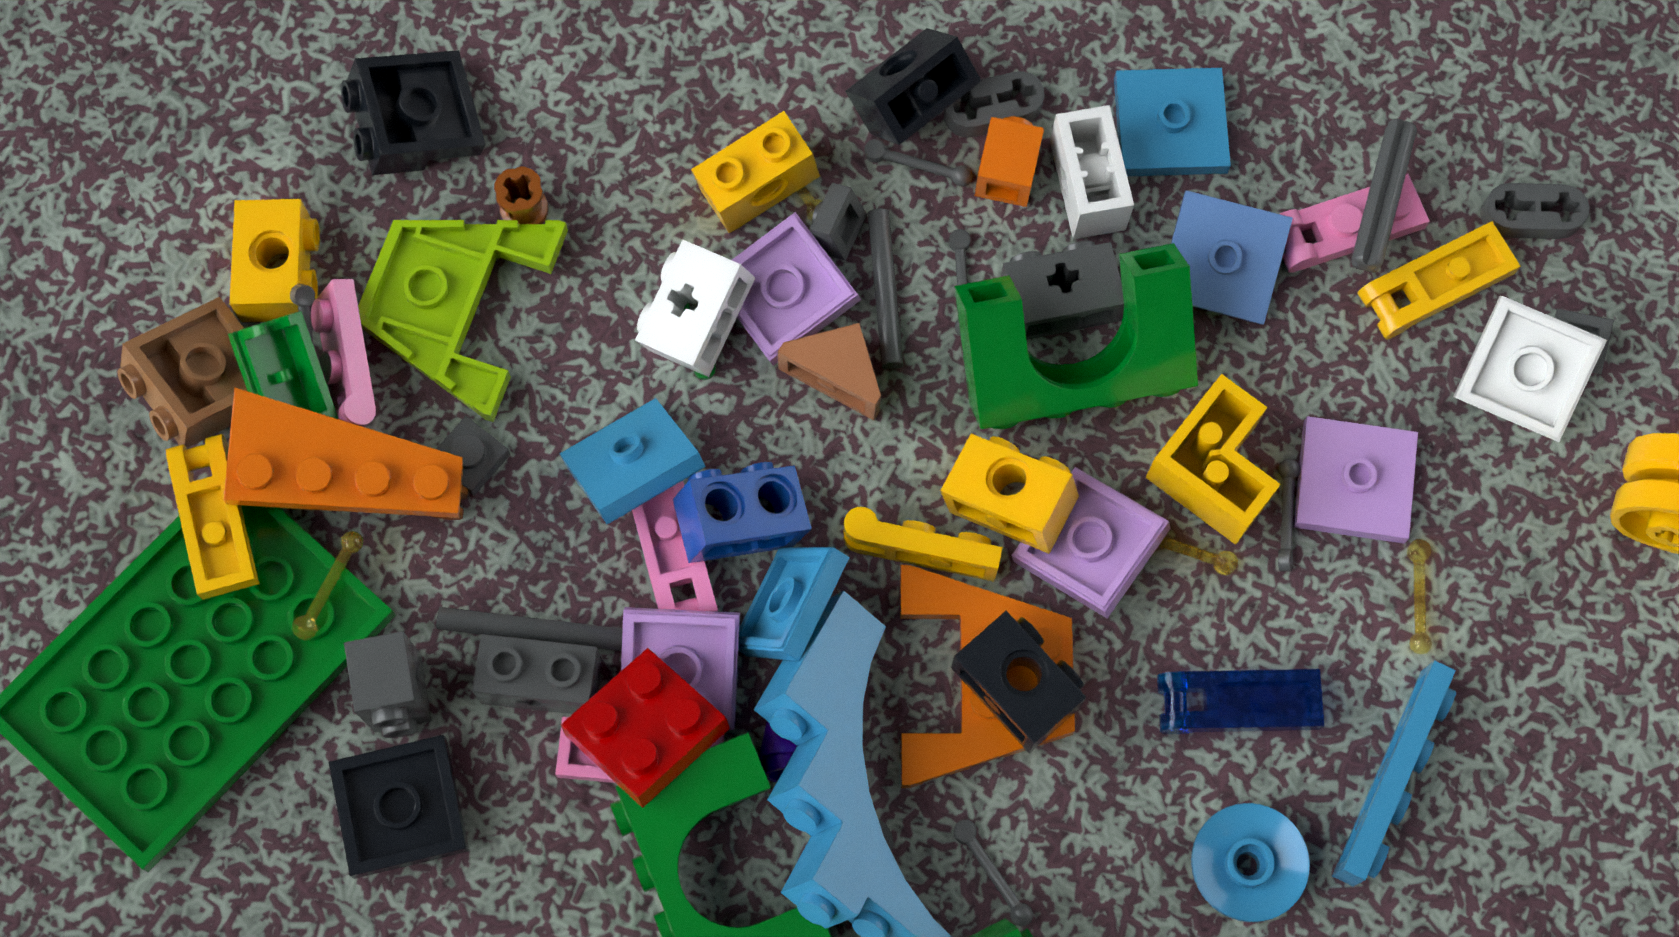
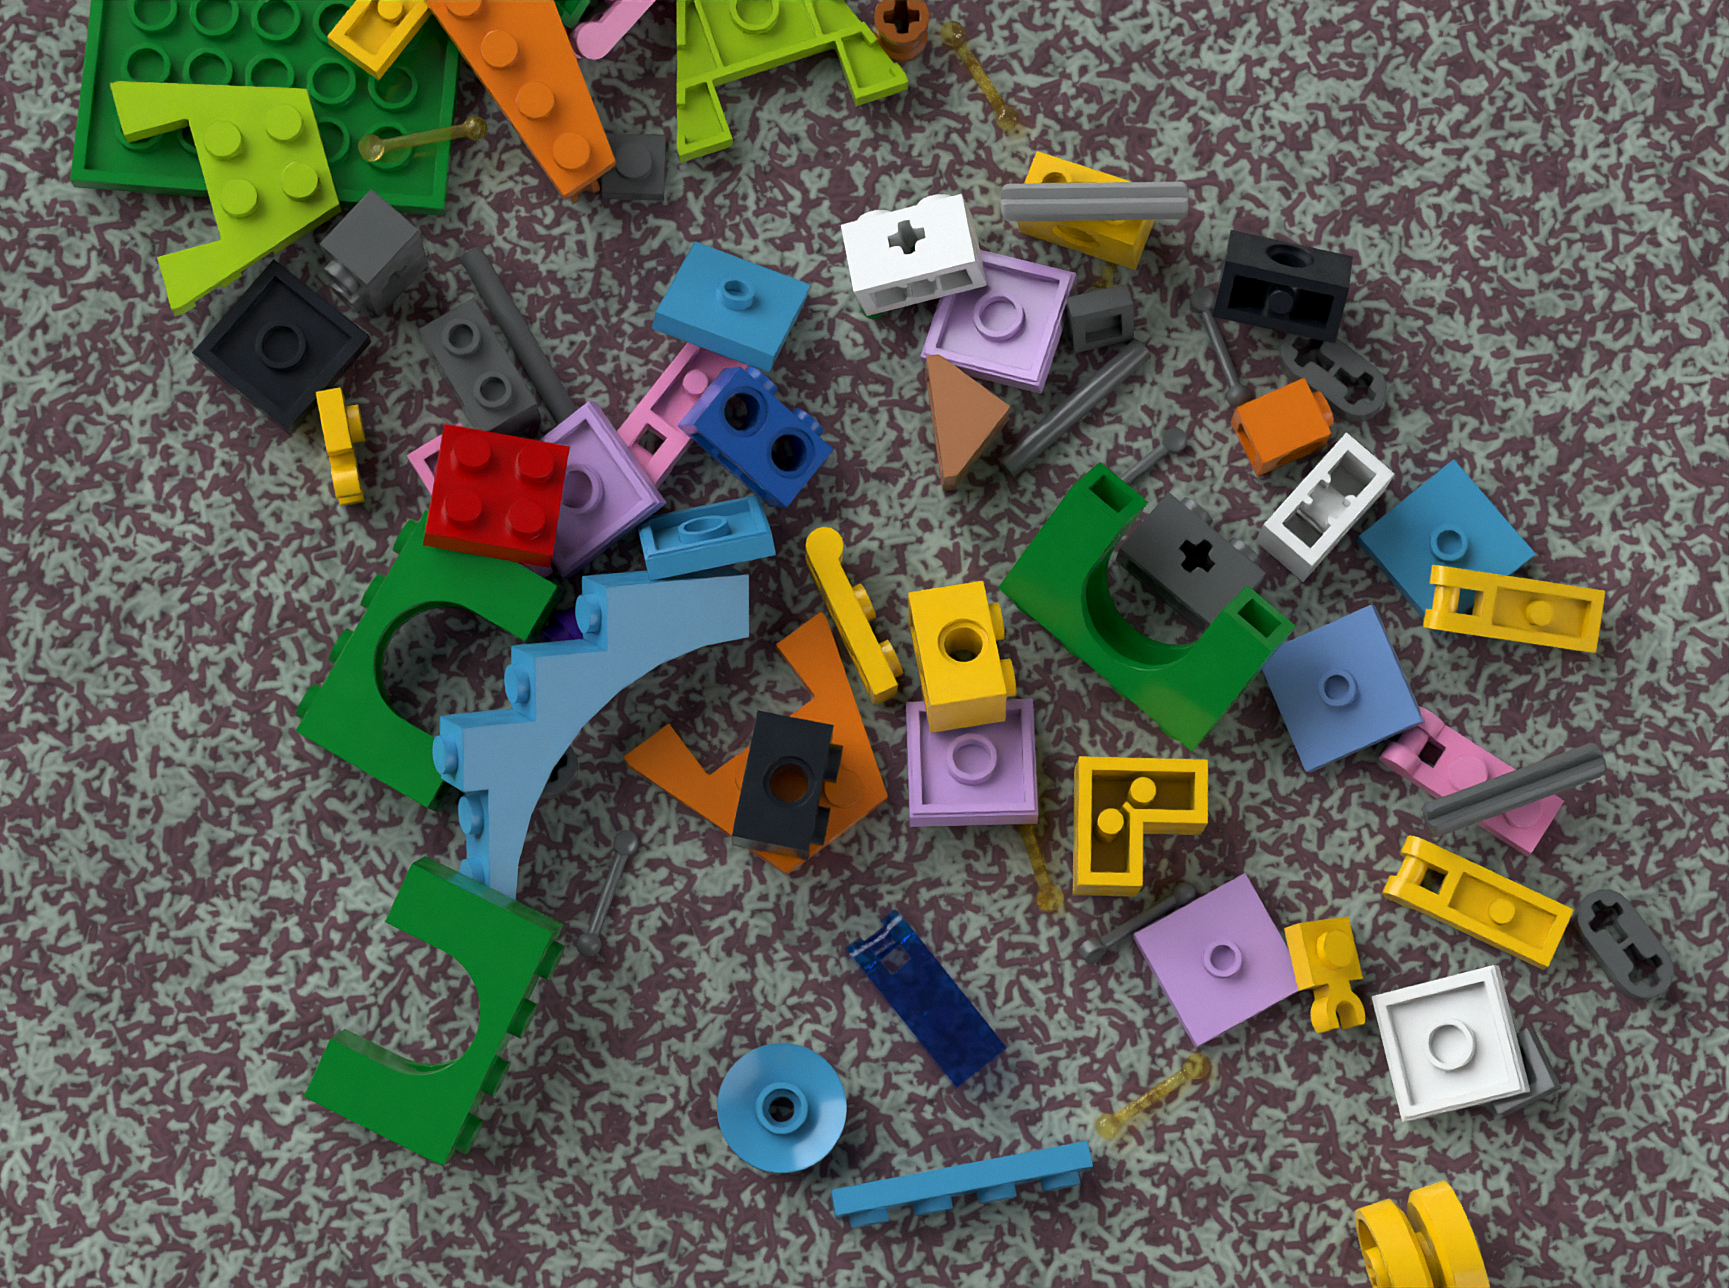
camera: 50 degrees right, 5 degrees up
(248, 718) = (259, 169): none -> lime wing
(497, 807) = (341, 429): none -> yellow plate
(554, 174) = (953, 37): none -> clear yellow hinge
(764, 152) = (1094, 201): none -> light grey axle
(1254, 105) = (1516, 609): none -> yellow plate
(1414, 411) = (1327, 962): none -> yellow plate

